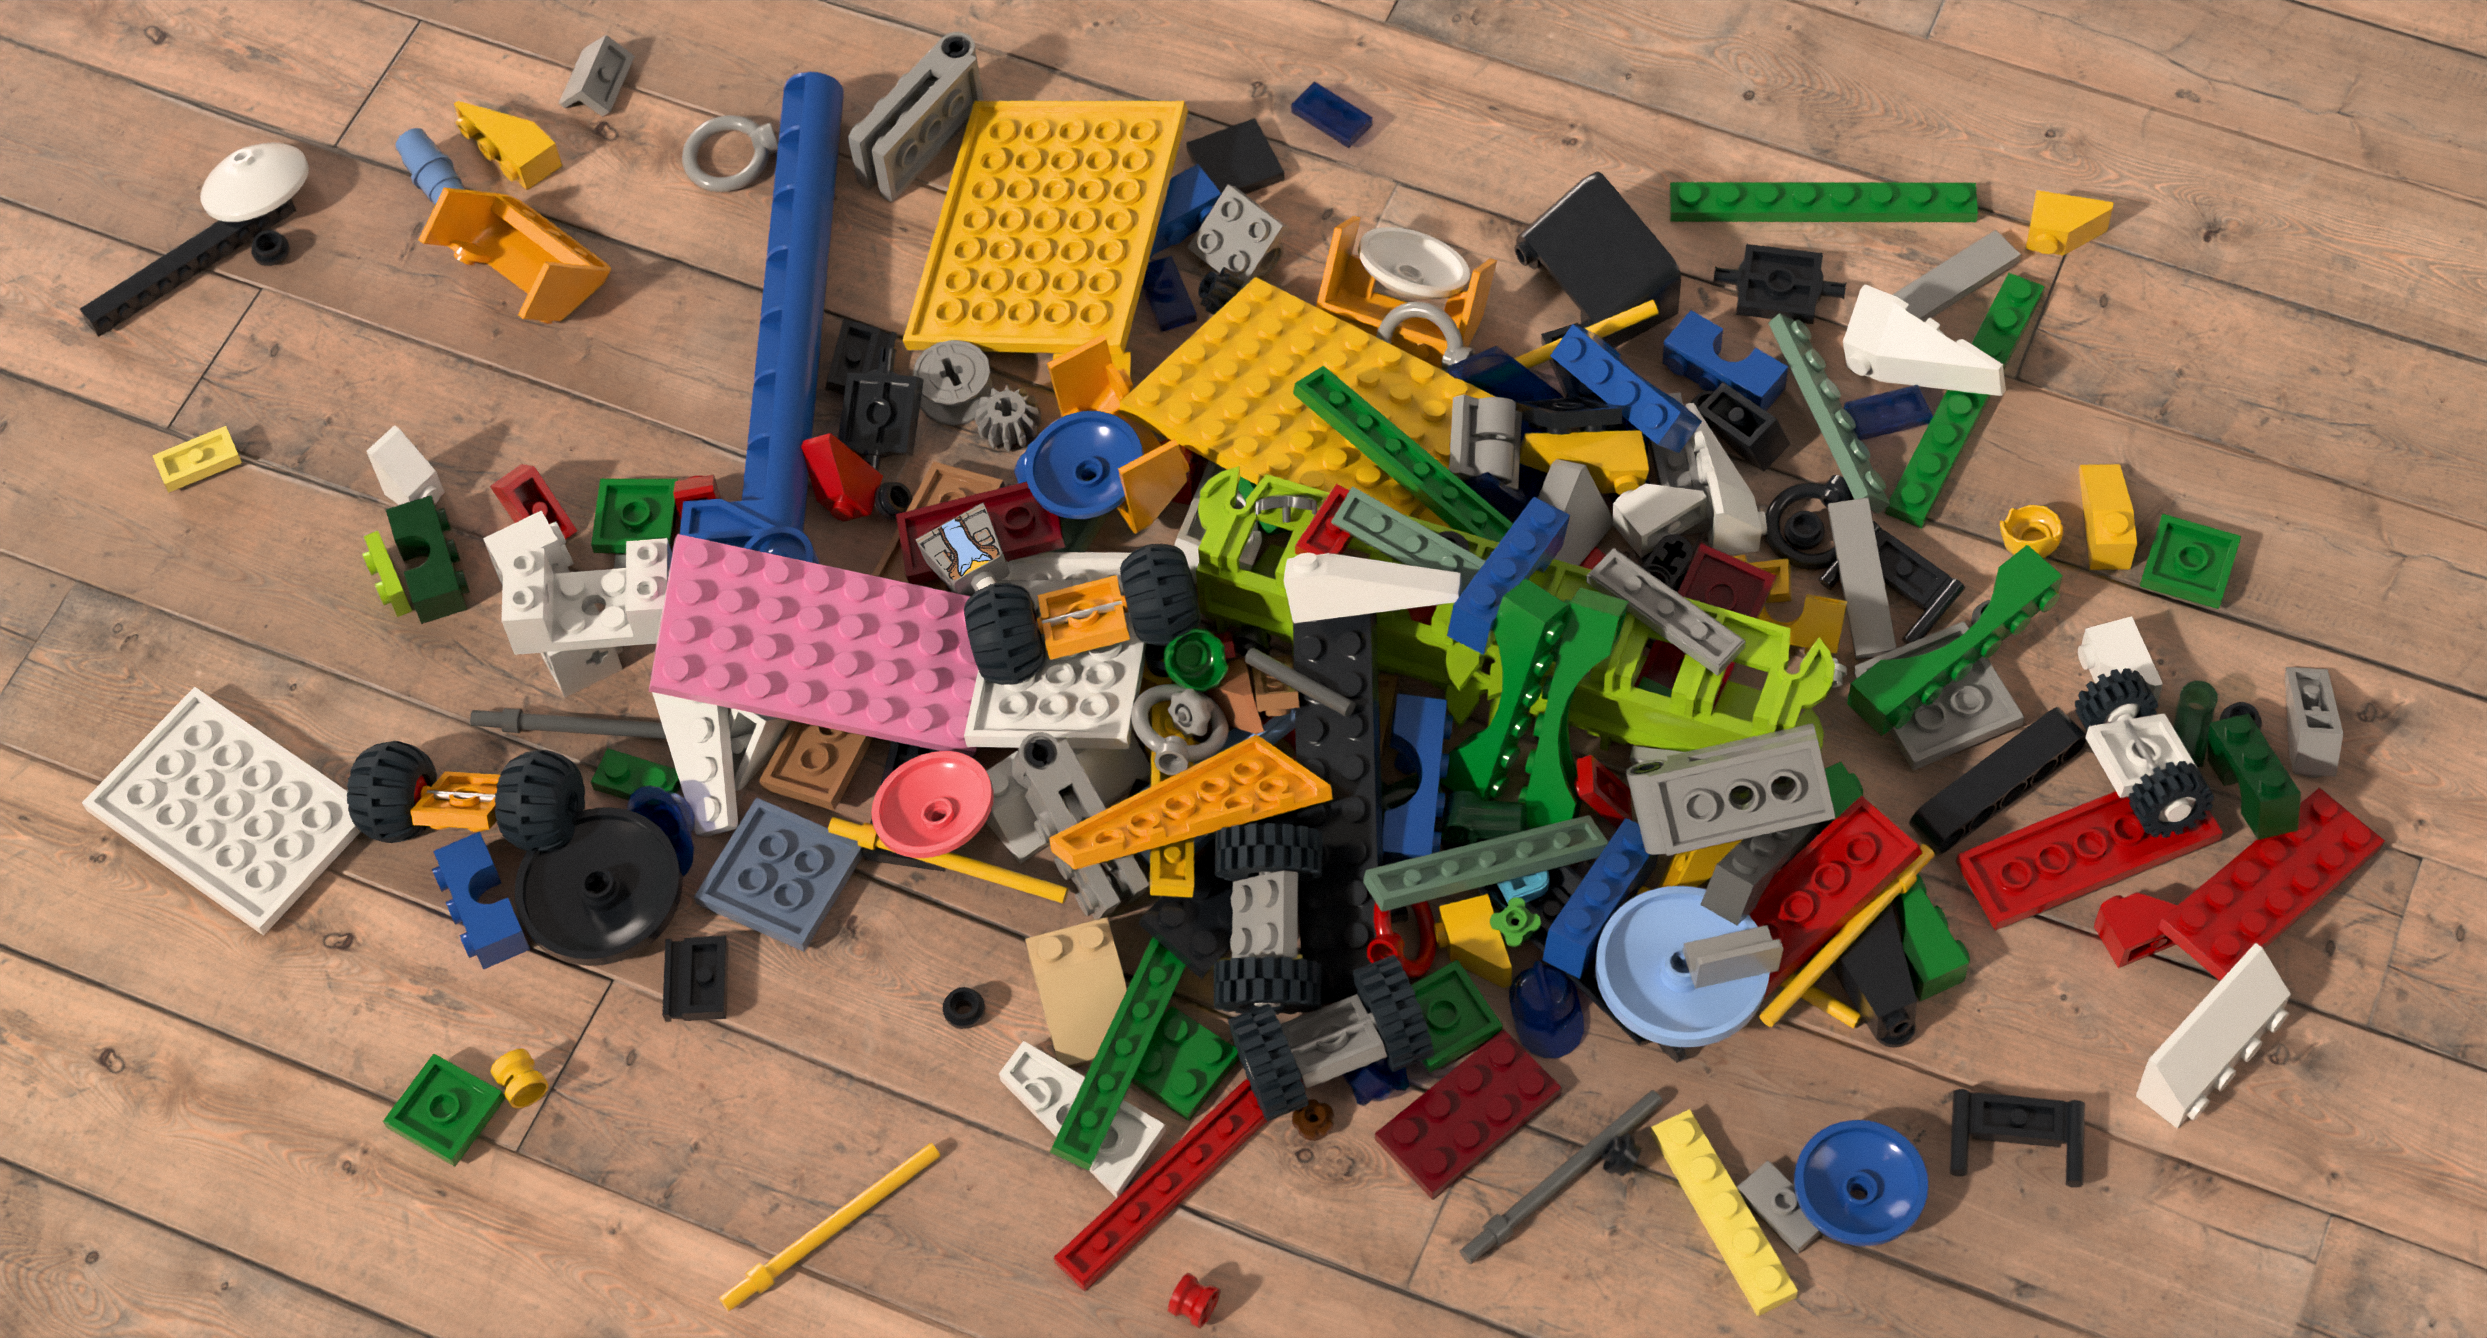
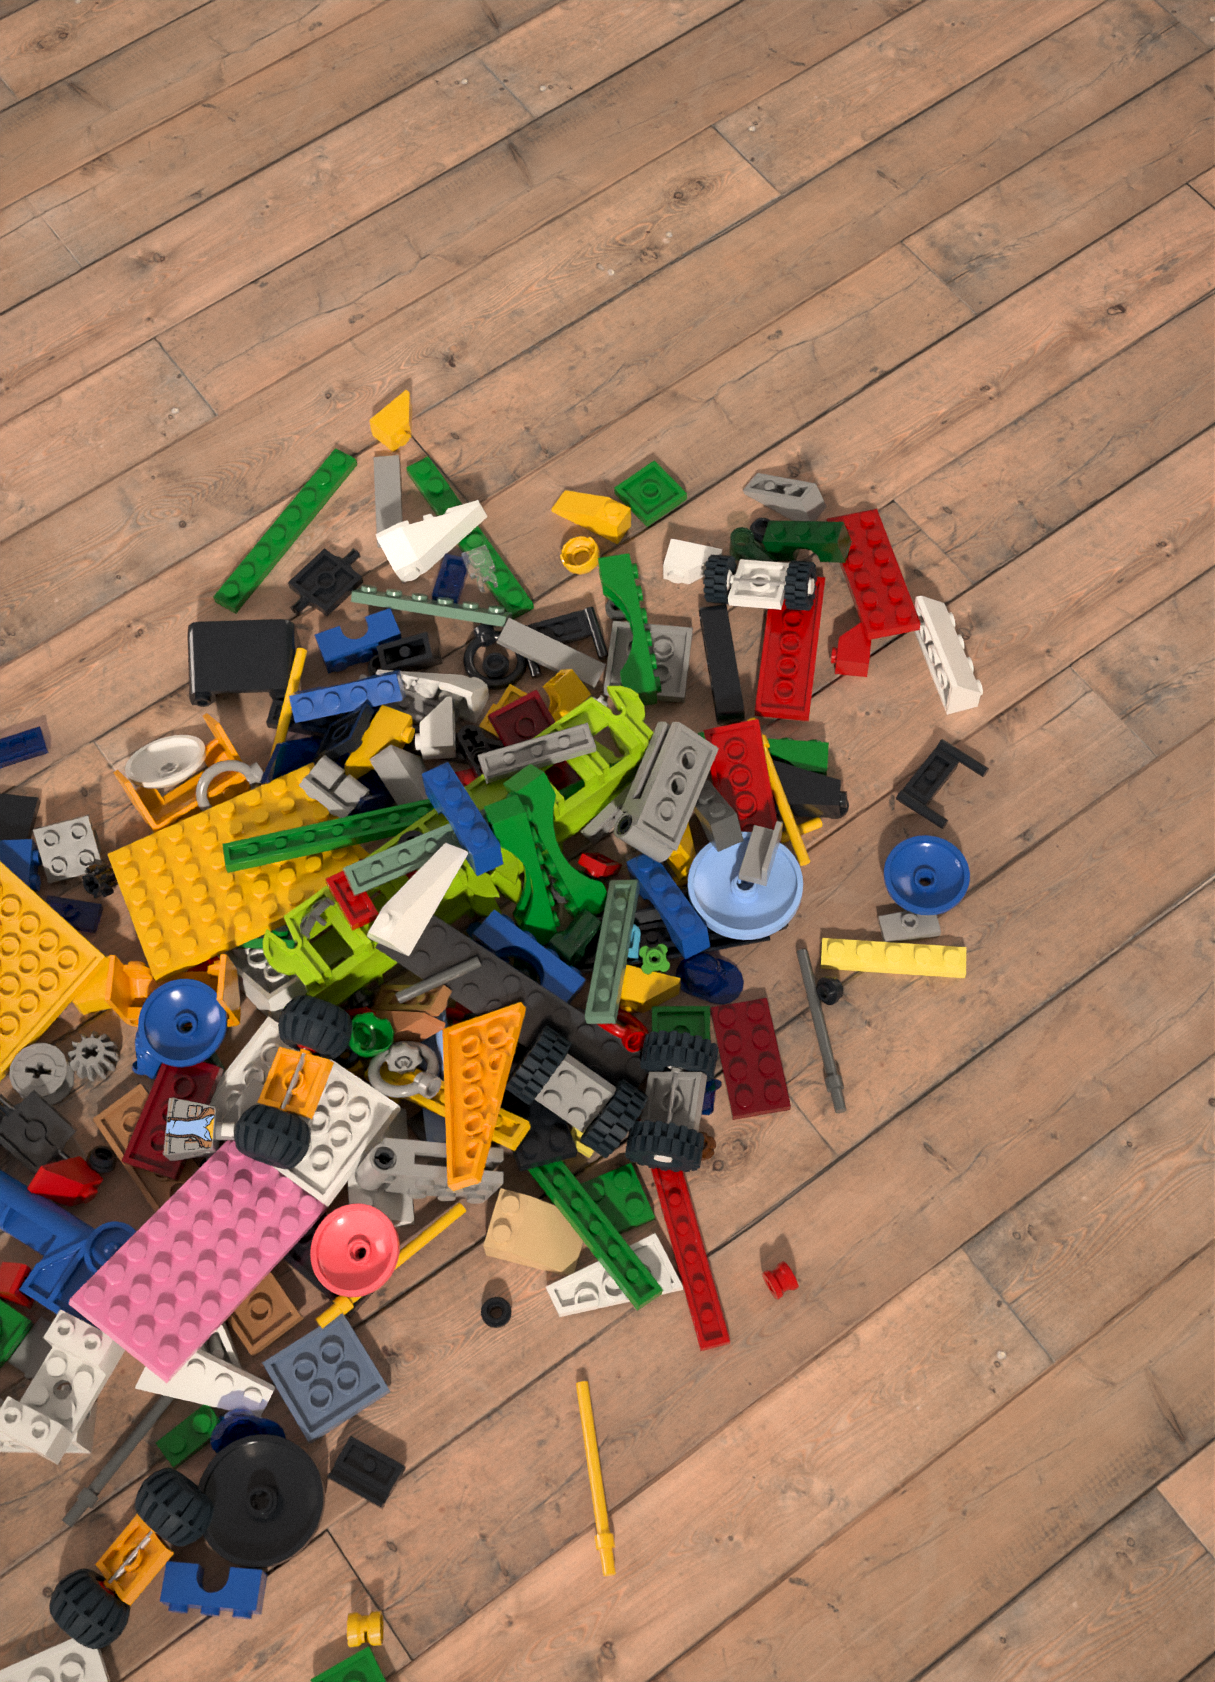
camera: 60 degrees left, 5 degrees up
(1925, 426) = (480, 566): none -> clear plate

